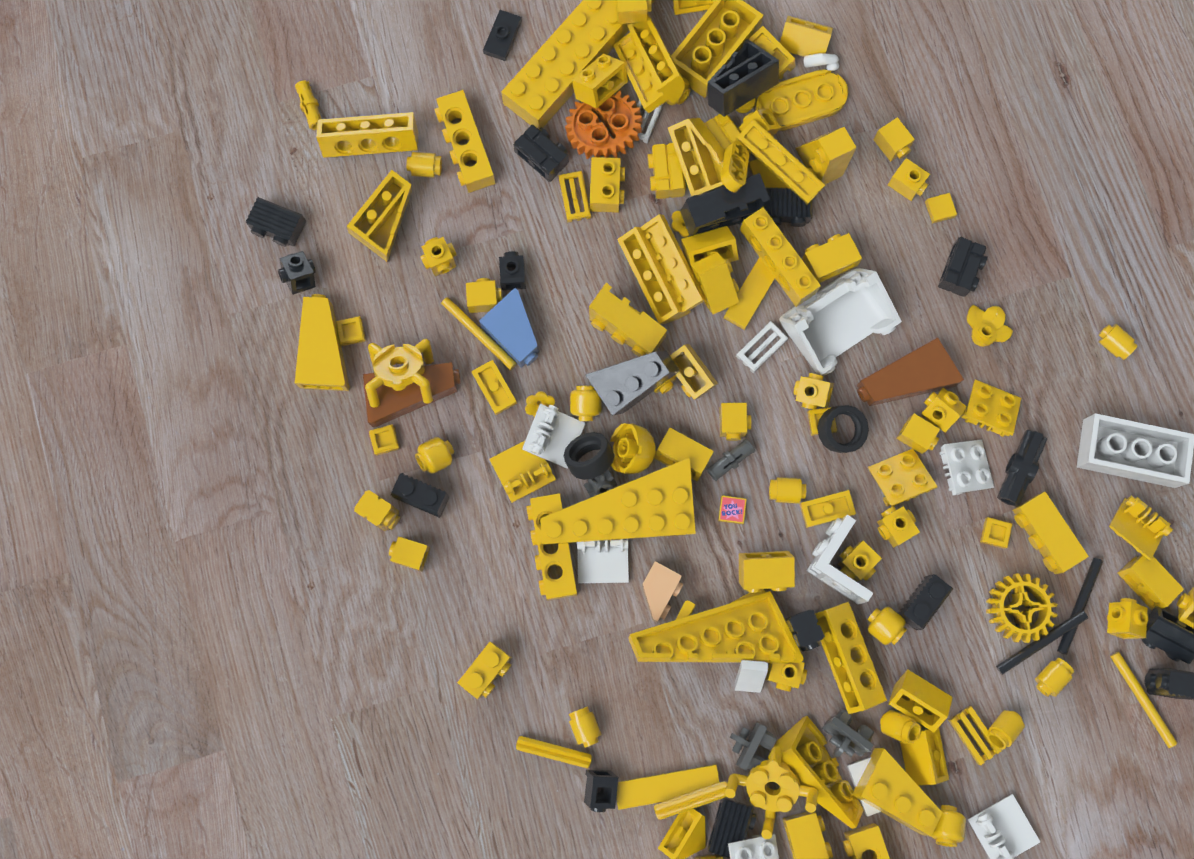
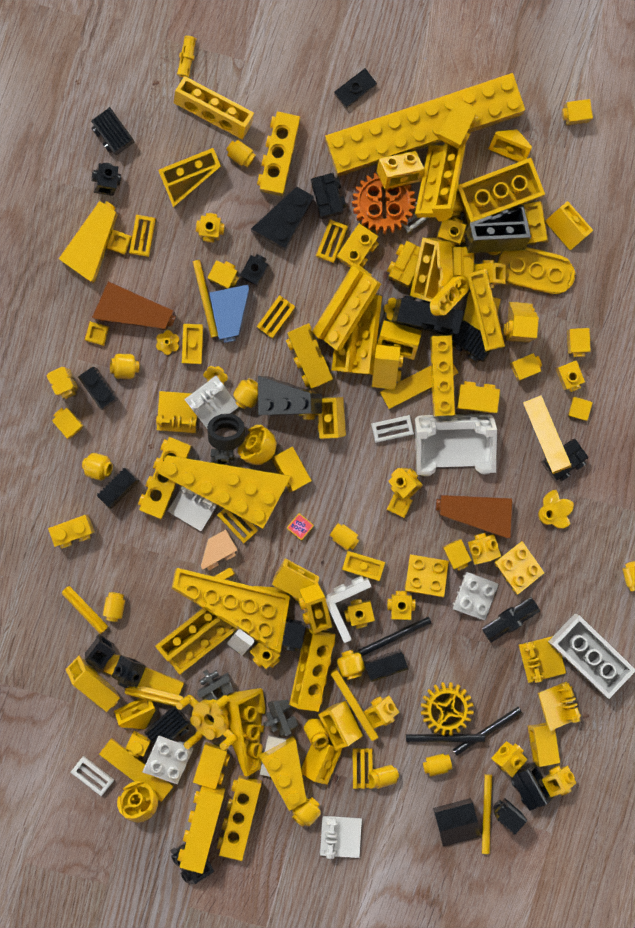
camera: 35 degrees right, 10 degrees up
(379, 327) = (150, 236): none -> yellow tile
(399, 377) = (134, 302): yellow plate -> none
(466, 409) = (171, 346): none -> yellow plant
(471, 581) = (97, 466): none -> yellow head
(508, 590) = (118, 488): none -> black brick
(511, 201) = (284, 219): none -> black wedge
(566, 286) = (269, 312): none -> yellow tile
(615, 832) = (92, 684): none -> yellow slope
(634, 245) = (346, 307): none -> yellow brick
(647, 791) = (128, 672): none -> black brick
(682, 553) = (232, 528): none -> yellow tile
(692, 106) = (452, 225): none -> yellow brick
(697, 706) = (194, 639): none -> yellow brick
(730, 459) = (320, 492): dark grey pin -> none
(734, 421) = (339, 468): yellow brick -> none
(810, 584) = (315, 608): none -> yellow brick
(820, 59) = (573, 253): white arm -> none
(857, 198) = (526, 366): none -> yellow brick
(860, 424) = (415, 532): black tyre -> none
(911, 565) = (395, 636): none -> black bar
(919, 668) = (354, 704): none -> yellow tile
(928, 251) = (547, 434): none -> yellow tile
(954, 656) = (384, 709): none -> yellow brick
(996, 533) = (465, 650): yellow tile -> none
(1049, 533) = (498, 673): yellow brick -> none
(1083, 492) = (541, 660): none -> yellow hinge
(1118, 728) = (457, 822): none -> black slope

